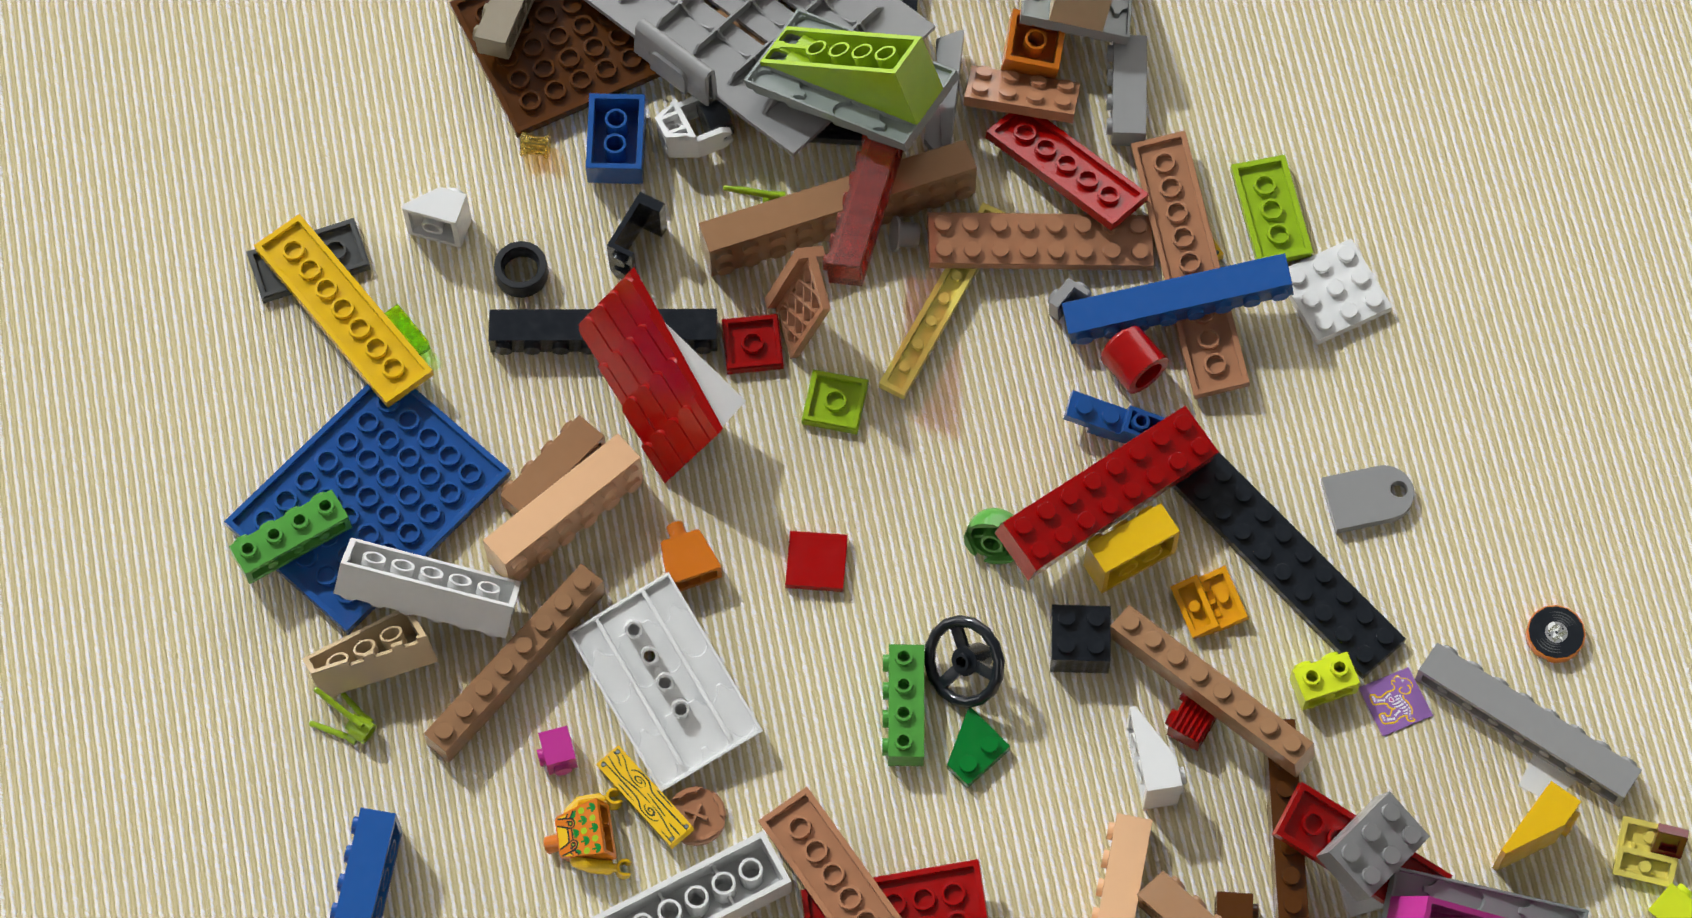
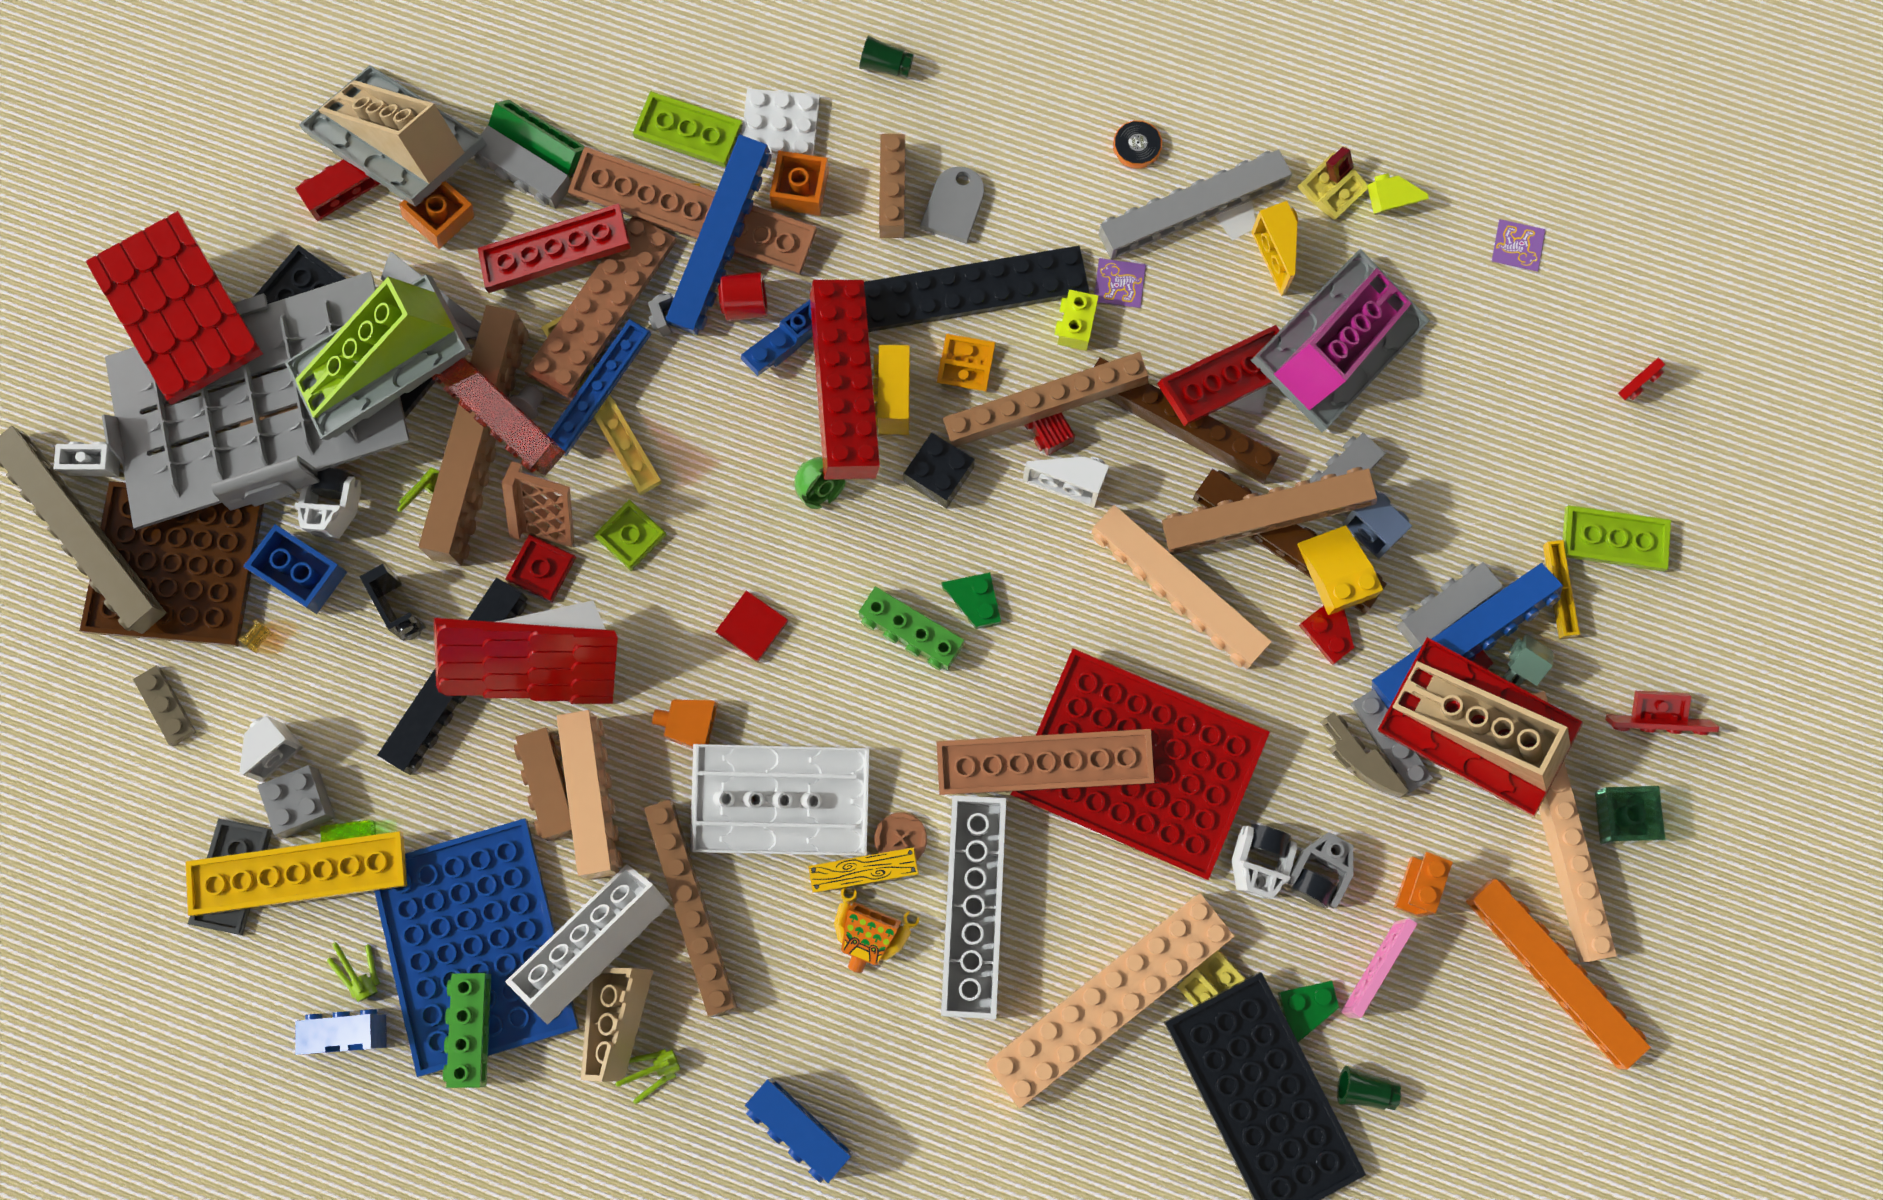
camera: 60 degrees left, 10 degrees up
(226, 435) = (340, 1032): none -> wedge
(276, 426) = (361, 986): none -> lime plant
(407, 271) = (296, 801): none -> light grey brick
(426, 112) = (164, 705): none -> dark tan plate
(516, 250) = (342, 696): black tyre -> none
(557, 751) = (784, 917): dark pink brick -> none
(957, 285) = (599, 385): none -> blue tile
(965, 660) = (908, 562): black piece -> none
(1022, 94) = (471, 244): nougat plate -> none
(1168, 84) = (536, 136): none -> green brick
(1284, 341) = (799, 183): none -> orange brick
(1342, 427) = (892, 186): none -> medium nougat brick
(1373, 846) = (1236, 361): light grey brick -> none
(1472, 342) = (885, 58): none -> dark green plant

